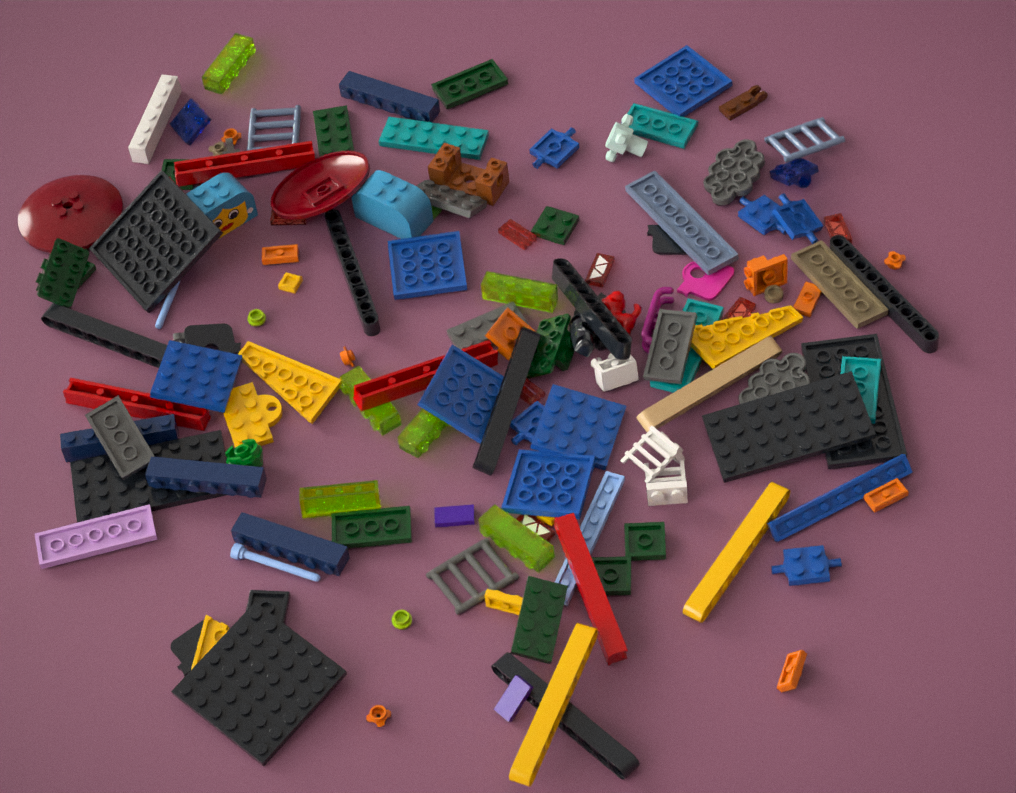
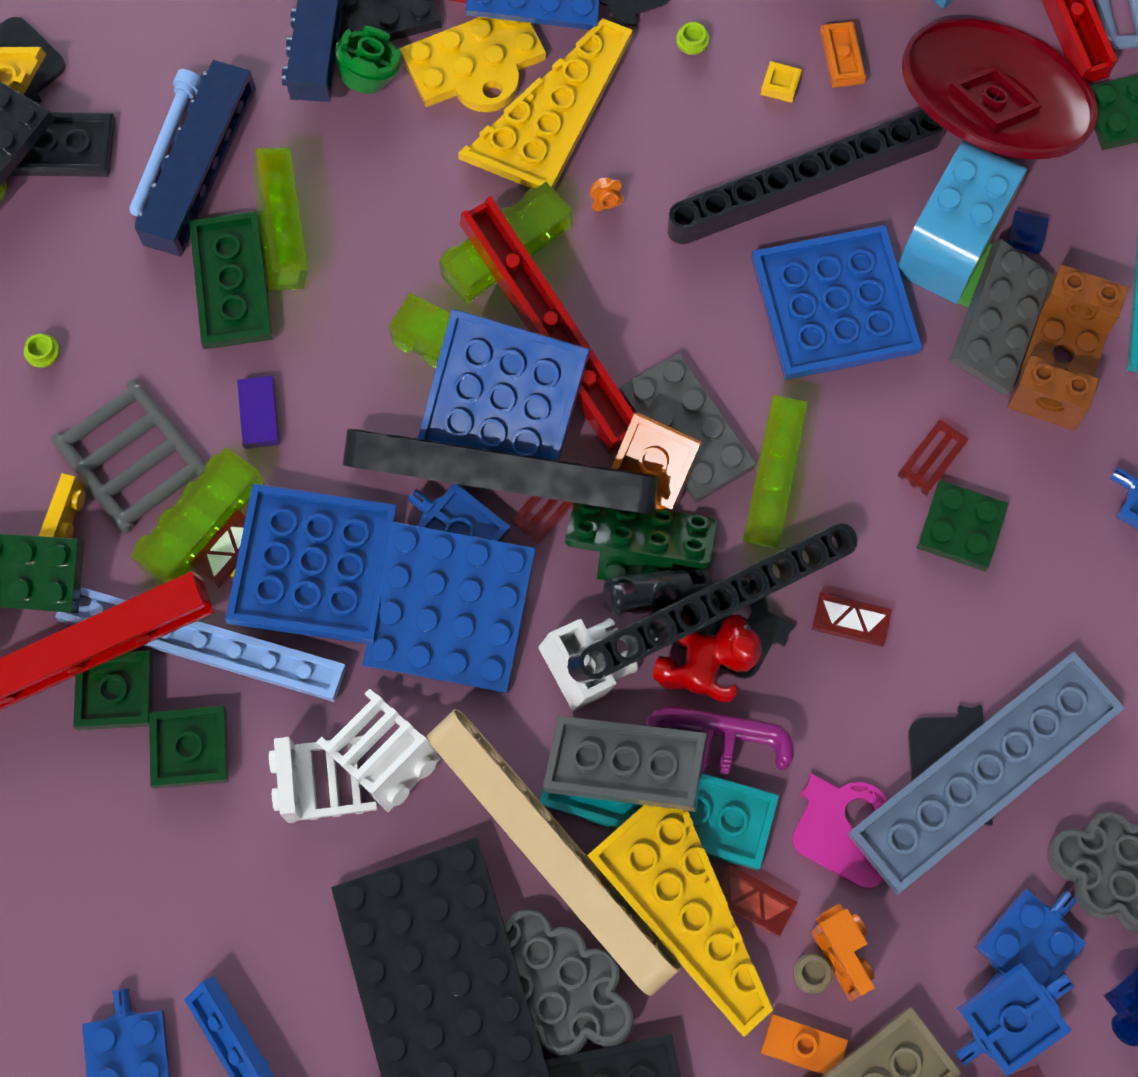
camera: 80 degrees right, 20 degrees up
(736, 552) = (161, 923): yellow beam -> none

